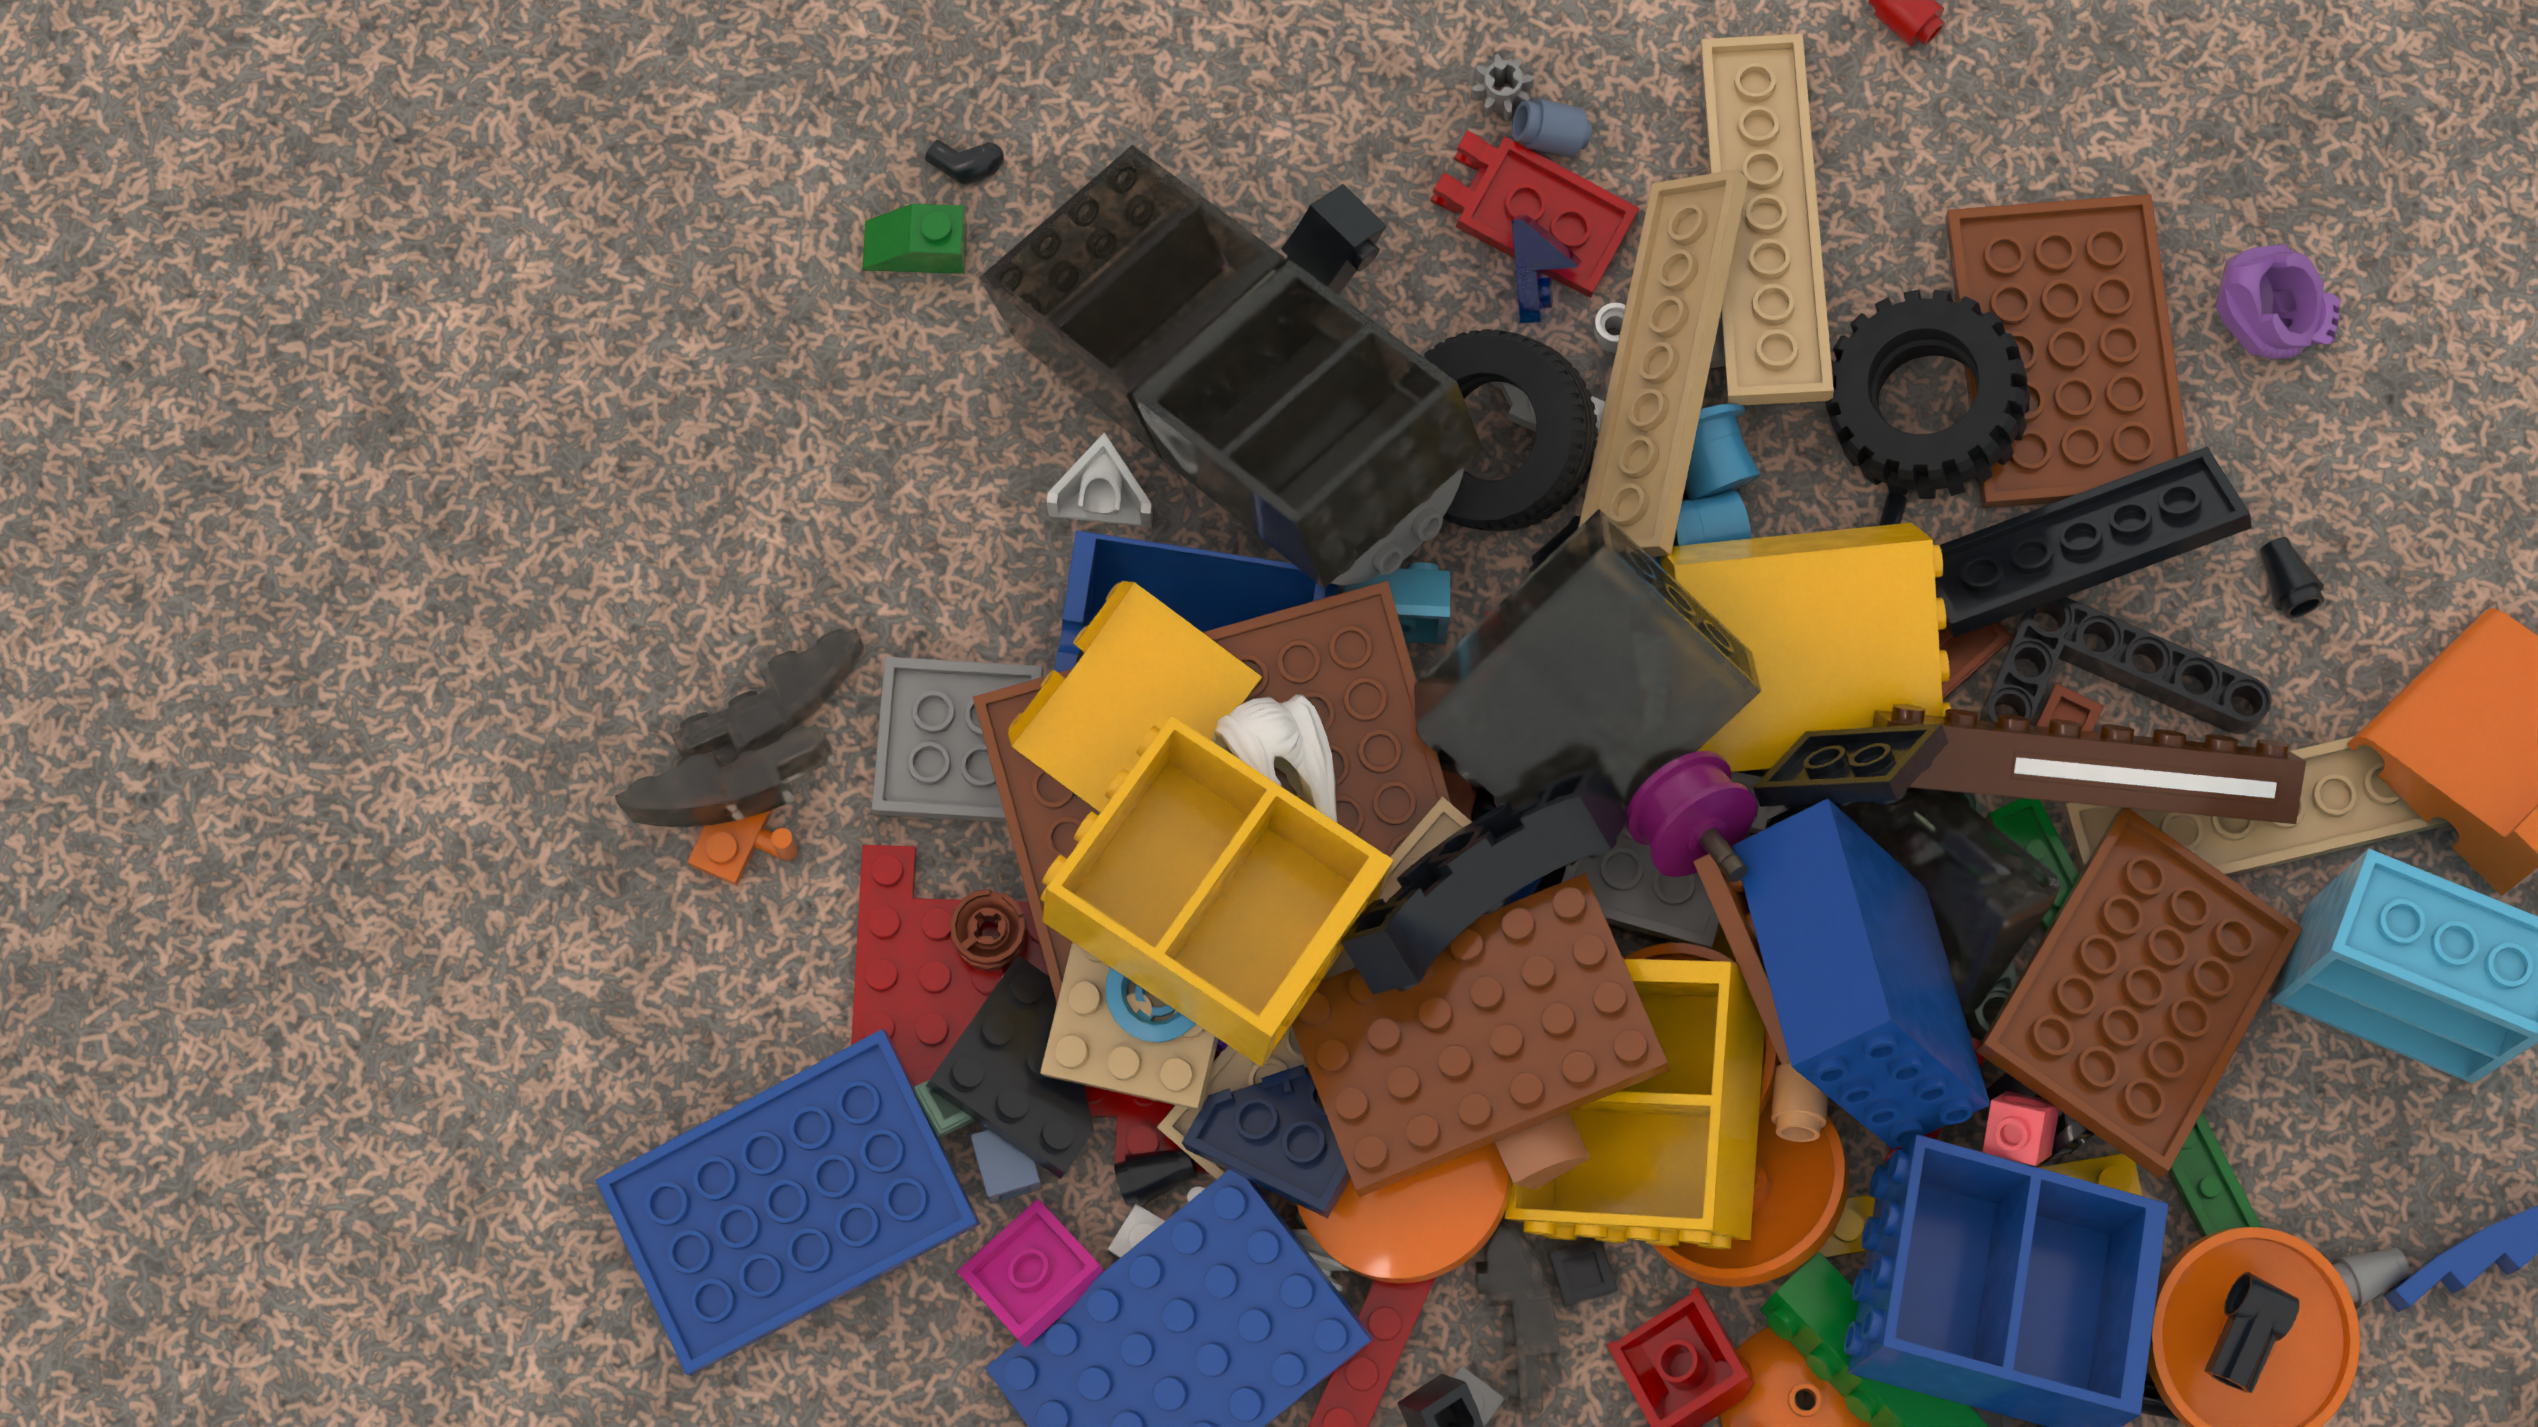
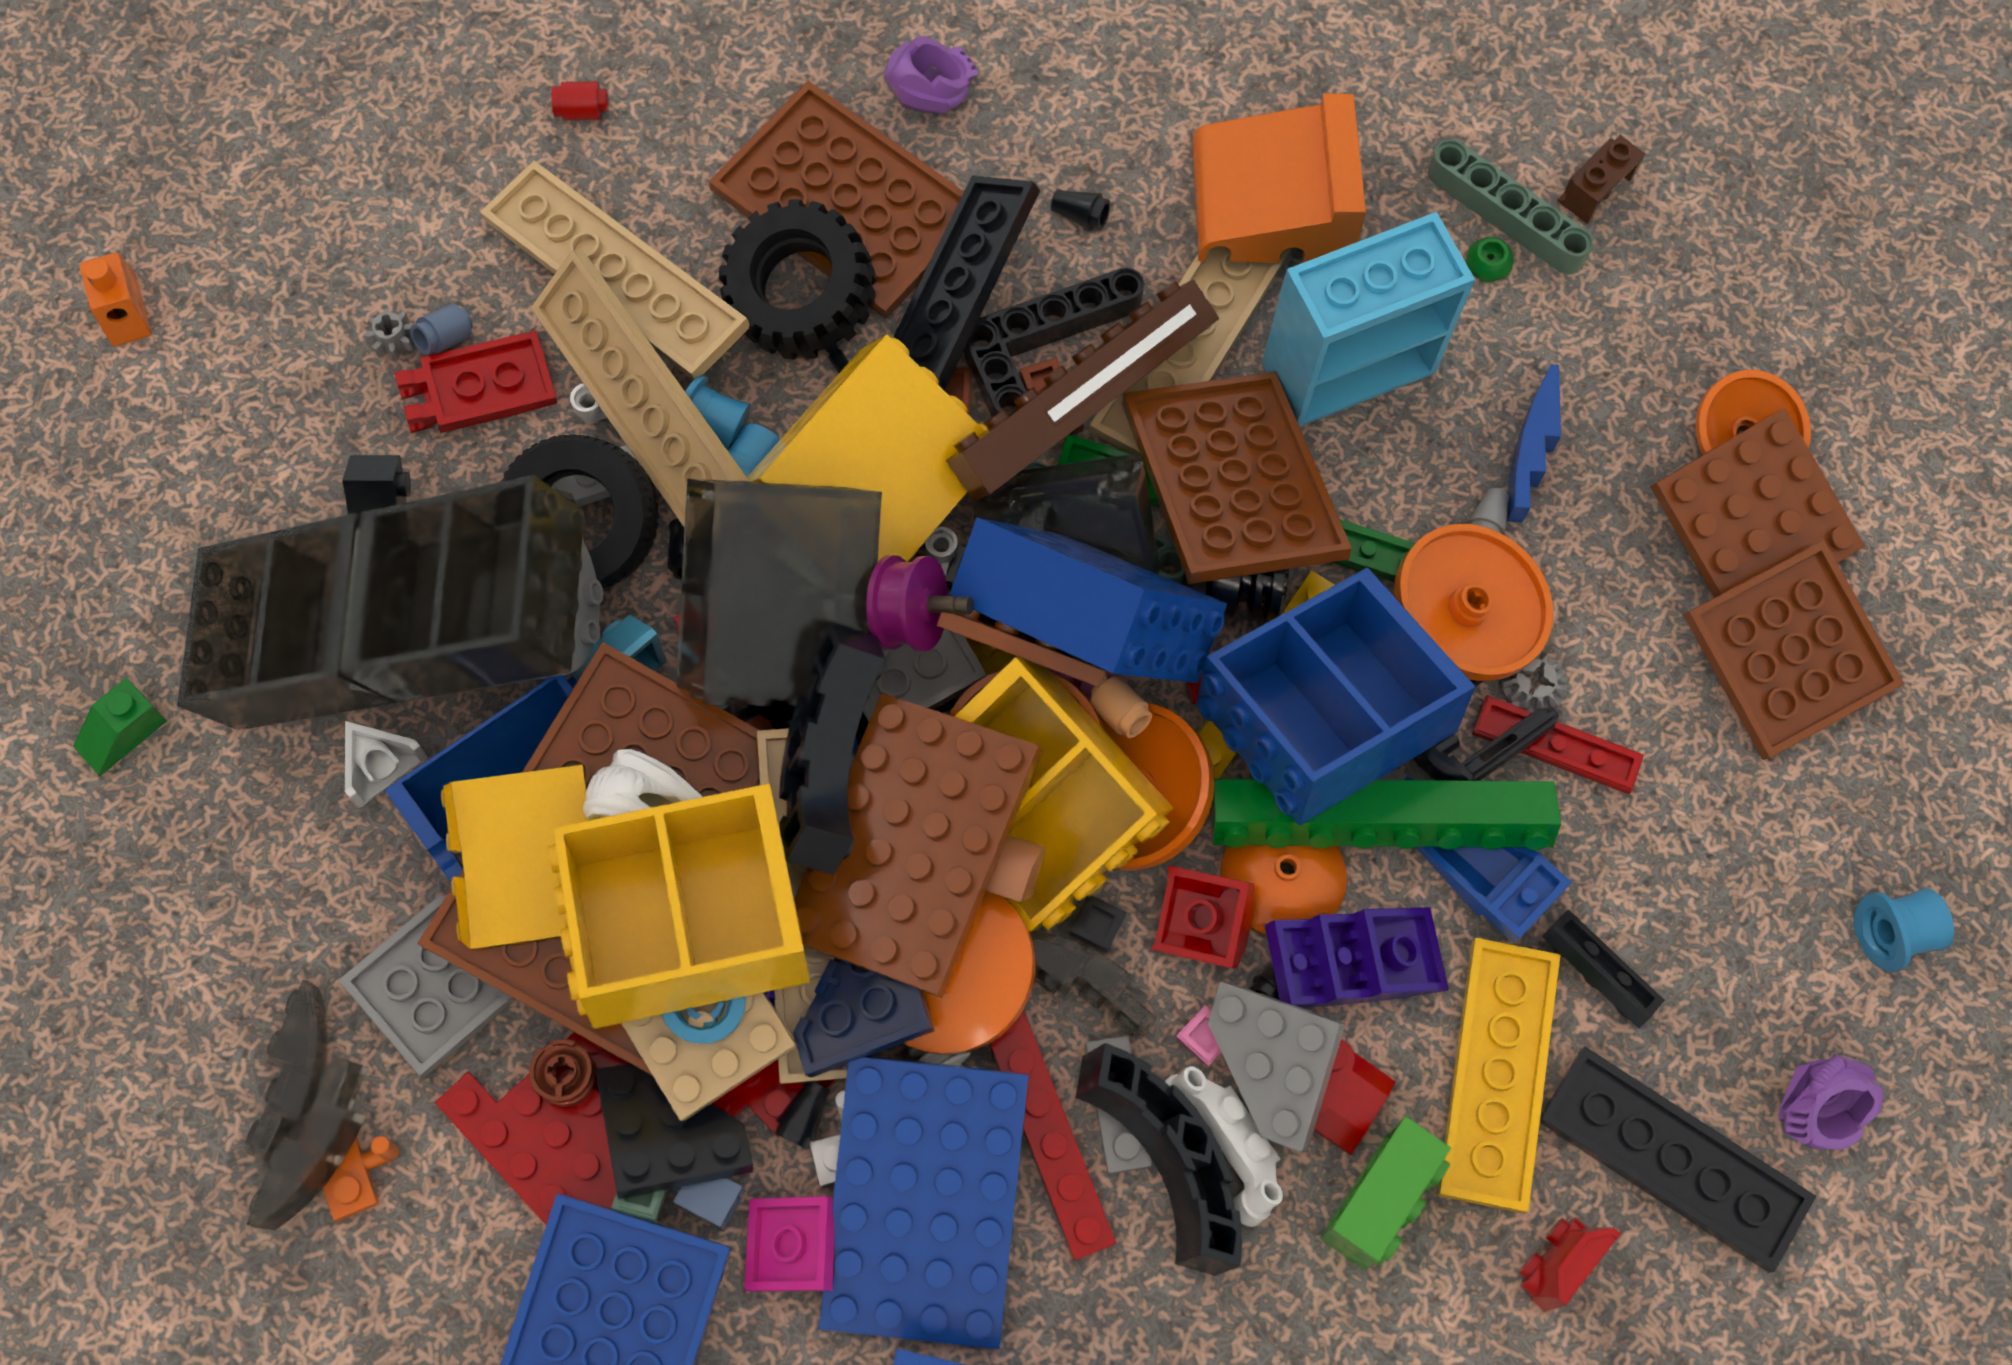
camera: 50 degrees left, 5 degrees down
(967, 165) = (105, 659): black arm -> none
(1537, 251) = (501, 399): clear blue slope -> none
(1851, 766) = (968, 492): black plate -> none
(2020, 1128) = (1252, 603): coral brick -> none
(2255, 1321) = (1470, 584): black piece -> none

